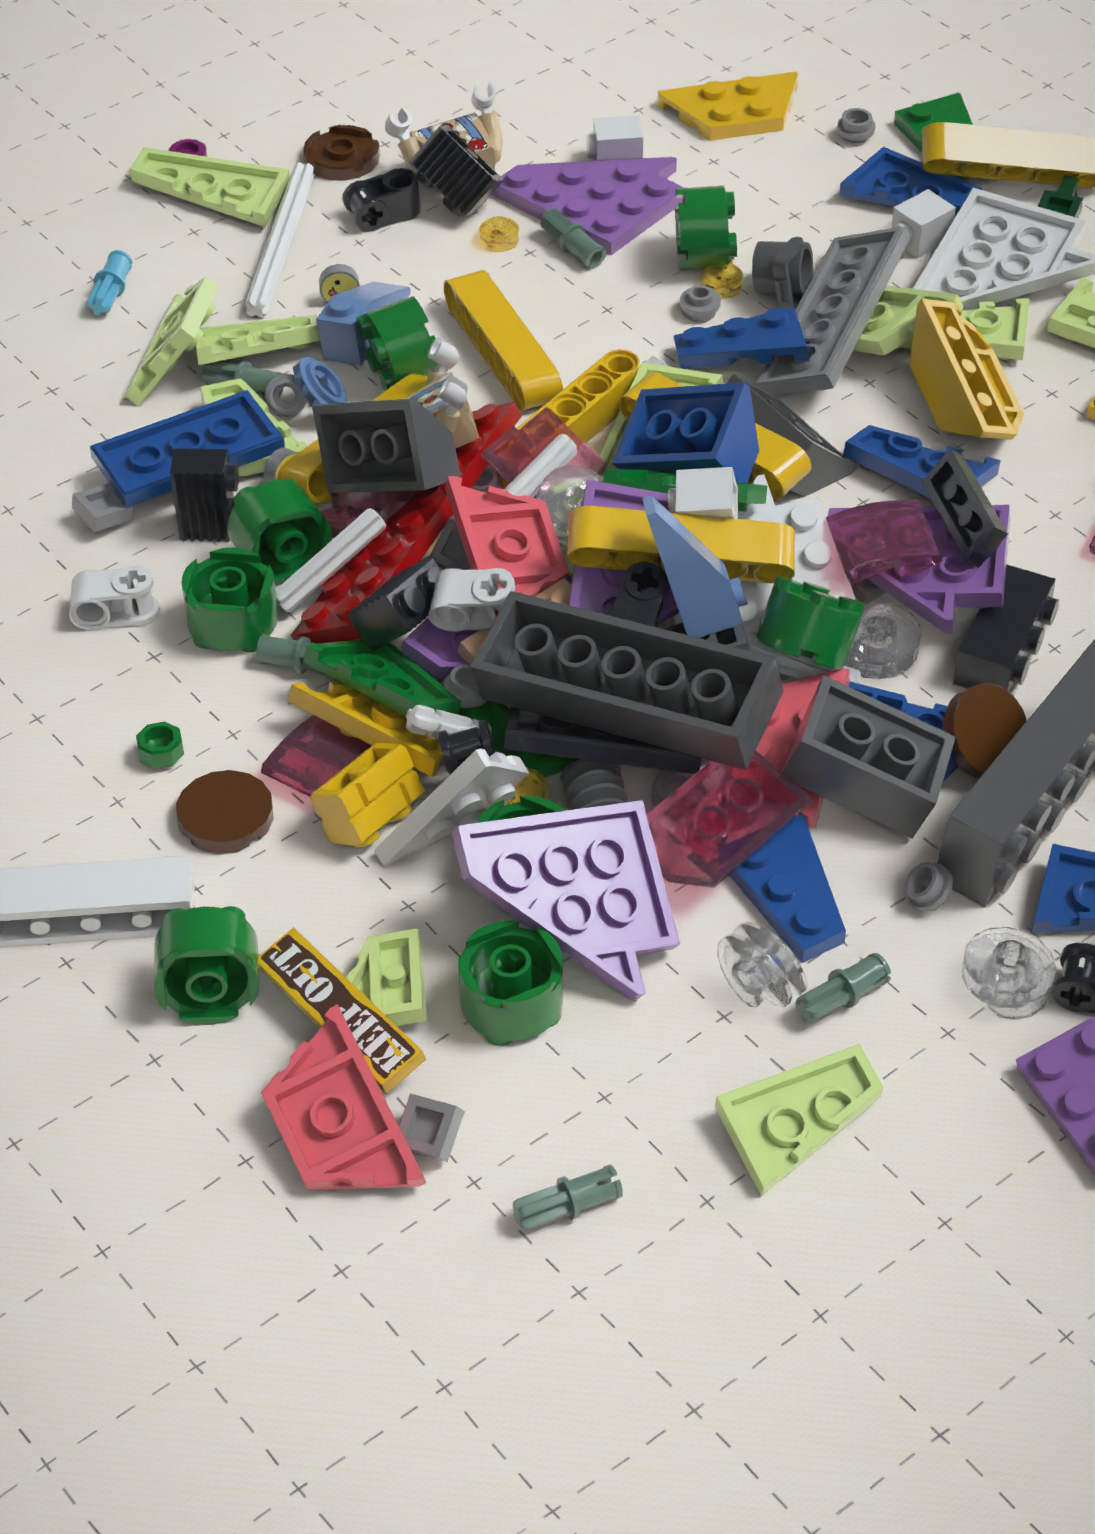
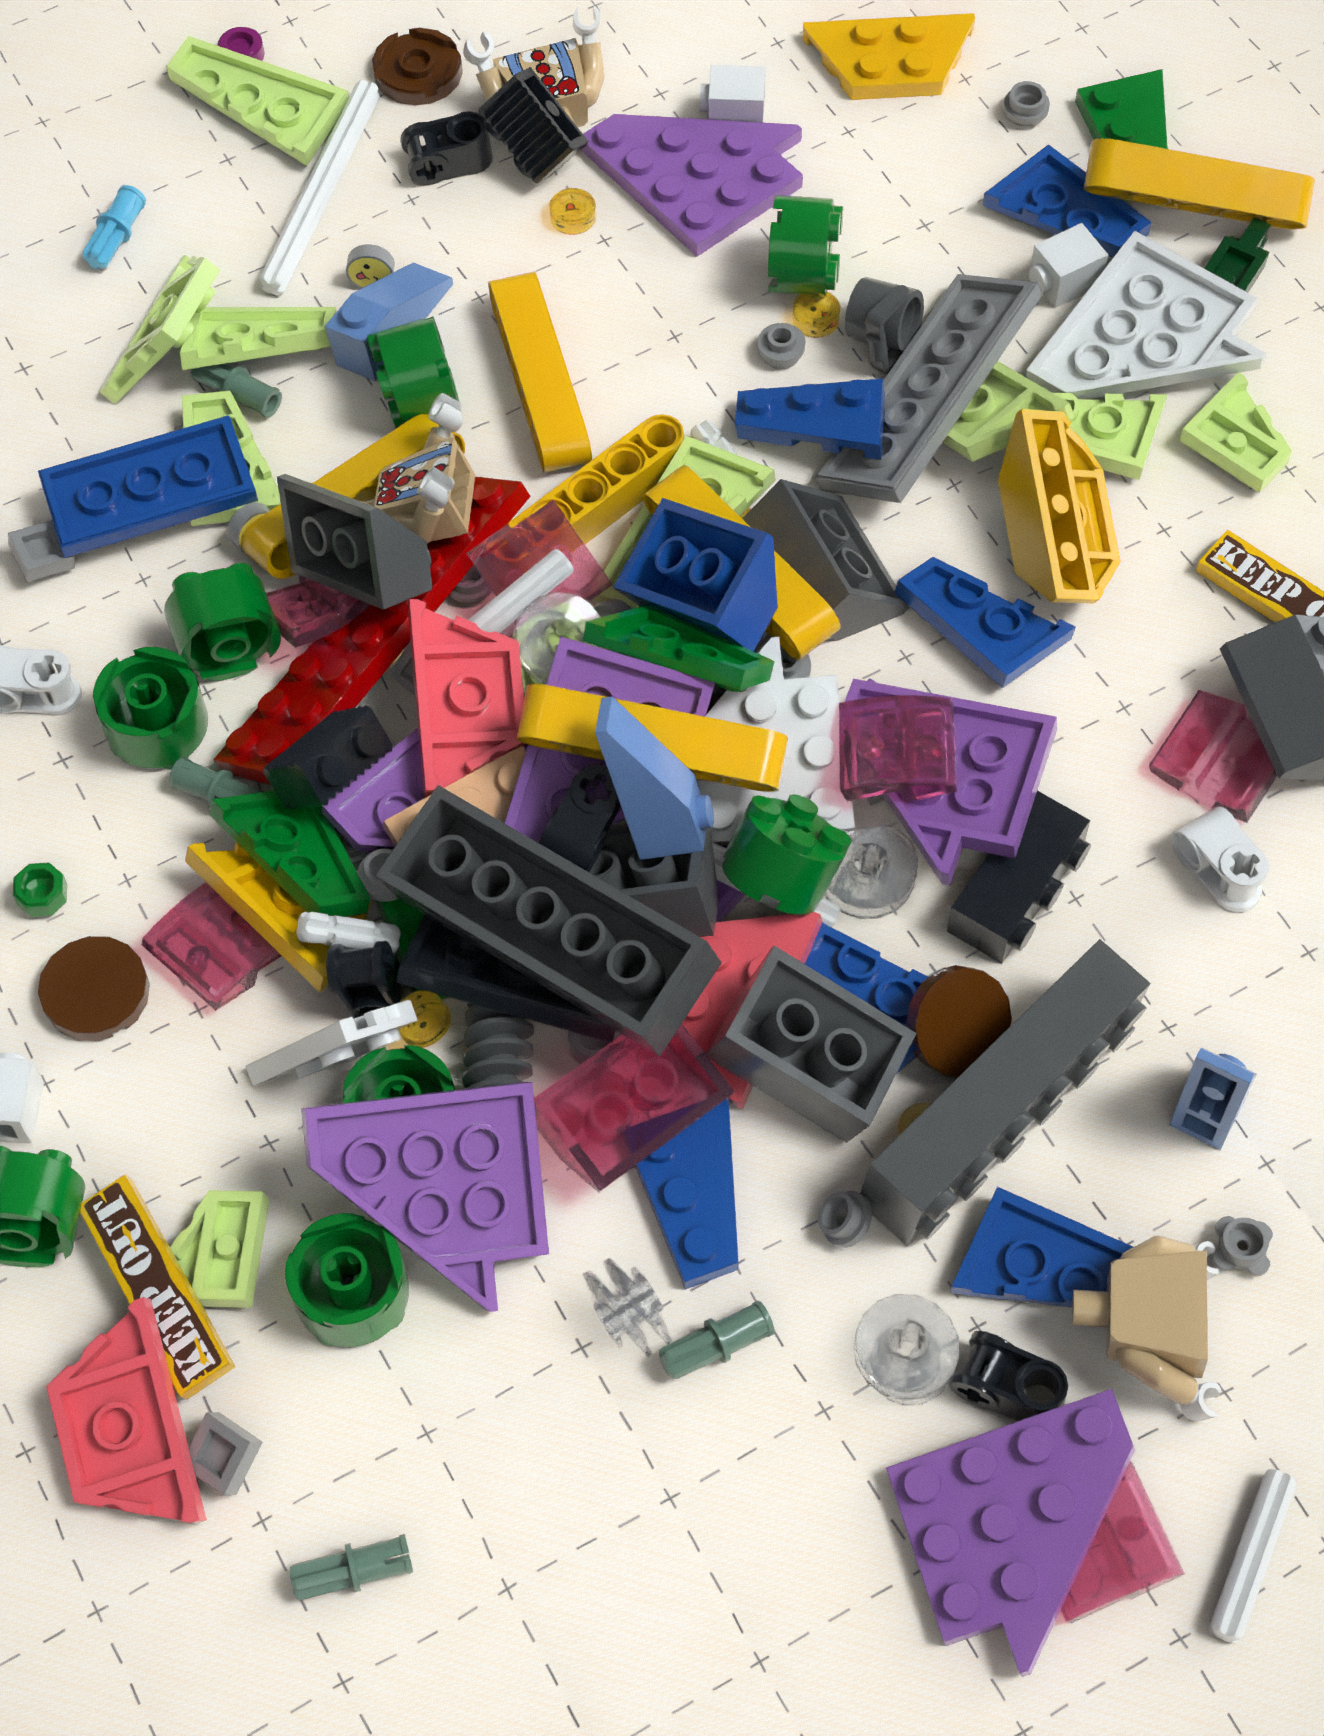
camera: 10 degrees right, 15 degrees up
(203, 492) = (146, 554): black brick -> none
(274, 401) = (268, 427): light grey plate -> none
(318, 382) = (330, 420): medium blue gear -> none
(329, 560) = (270, 671): white axle -> none
(368, 795) = (246, 1002): yellow brick -> none
(469, 598) = (400, 775): white piece -> none
(573, 238) = (654, 231): sand green axle -> none
(705, 493) = (688, 684): white brick -> none
(797, 1112) = (626, 1497): yellowish green wing -> none
(964, 508) = (998, 722): black plate -> none

